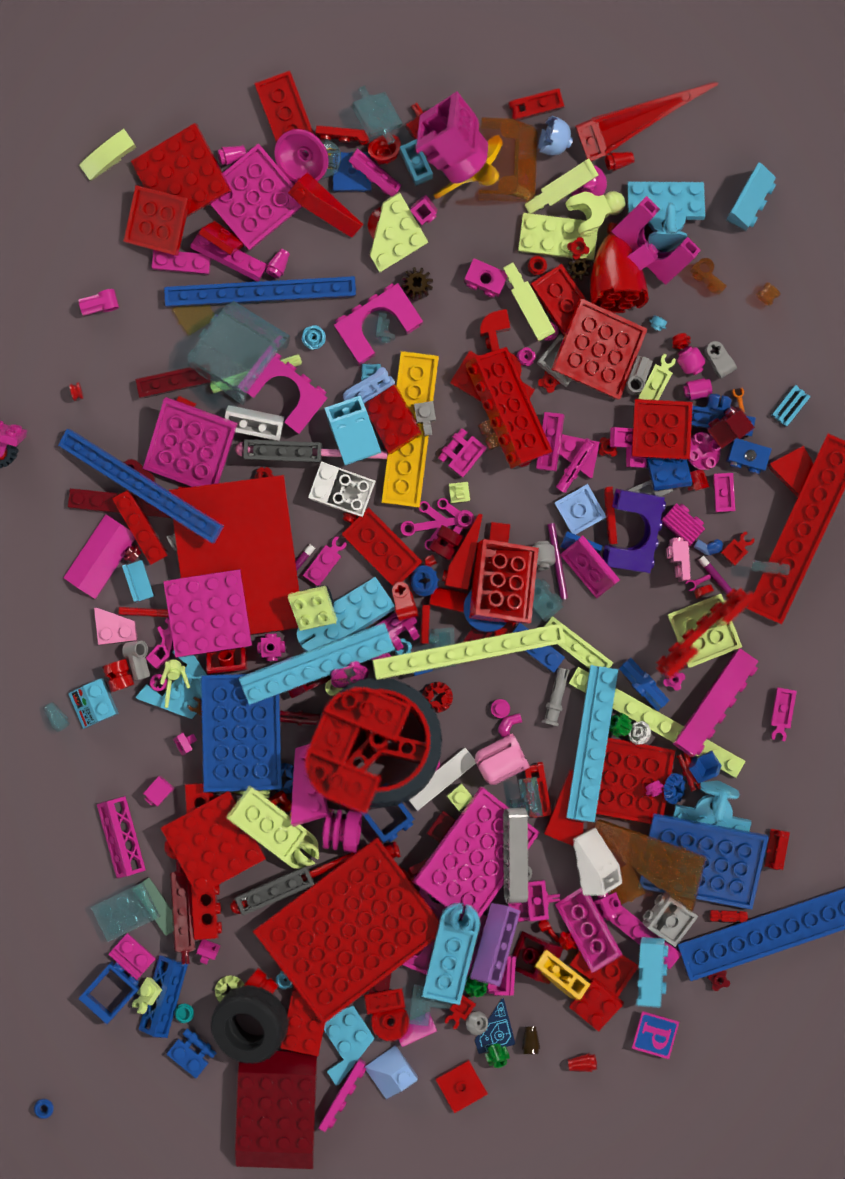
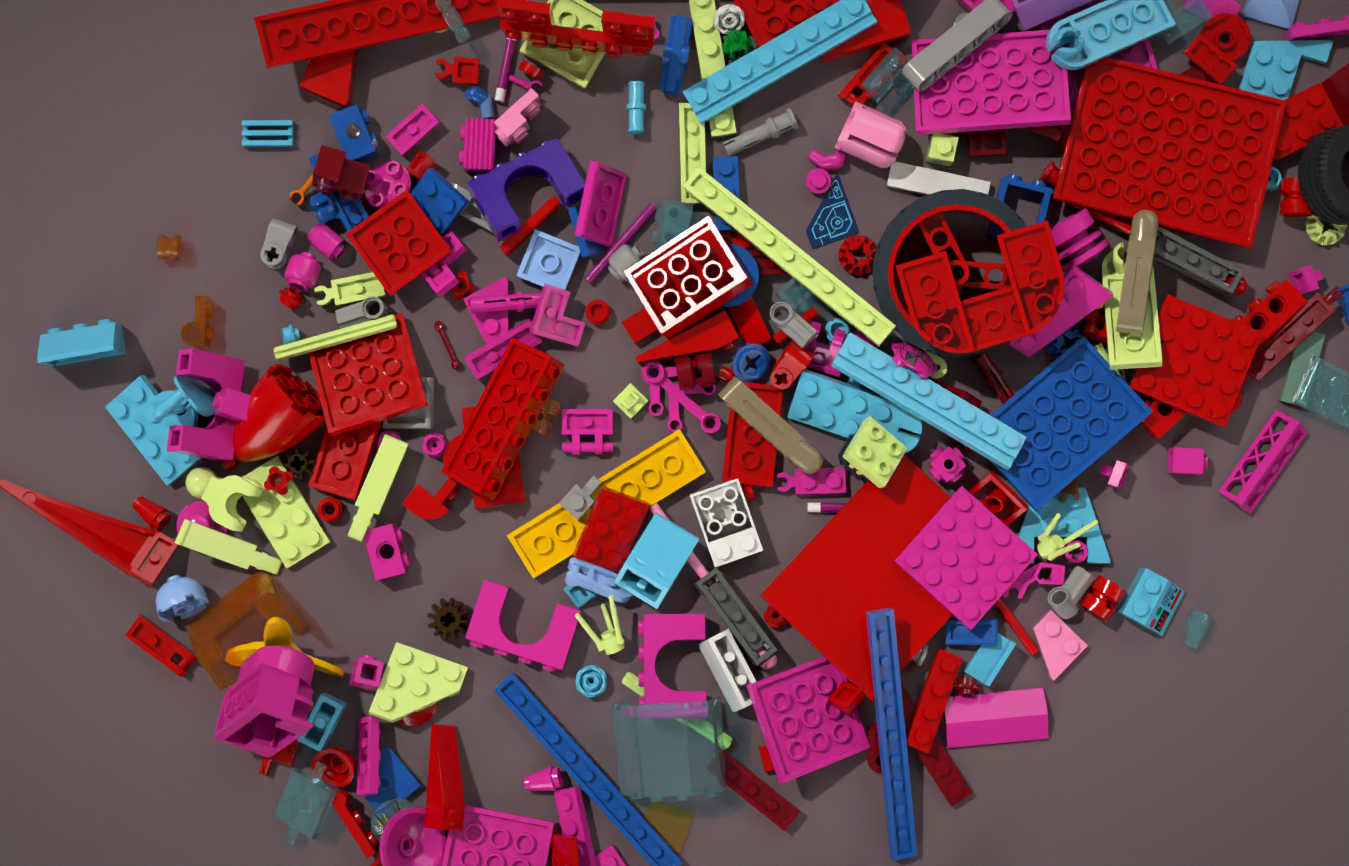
camera: 125 degrees left, 0 degrees up
(155, 588) = (982, 633): none -> blue tile
(183, 476) = (846, 697): none -> red tile
(292, 849) = (1137, 273): none -> dark tan piece
(328, 368) = (612, 638): none -> yellowish green plant
(377, 561) = (771, 426): none -> dark tan piece
(383, 324) = (520, 618): clear light blue bracket -> none
(425, 621) = (793, 326): none -> light grey piece
(471, 700) = (833, 217): none -> dark blue sticker
(527, 515) = (597, 312): none -> red plate
(543, 482) = (550, 320): none -> dark pink plate
(548, 386) = (447, 404): red plate -> none
(595, 415) = (439, 326): none -> dark red hinge
(631, 635) = (636, 107): none -> medium azure pin
(636, 348) = (335, 337): none -> yellowish green axle

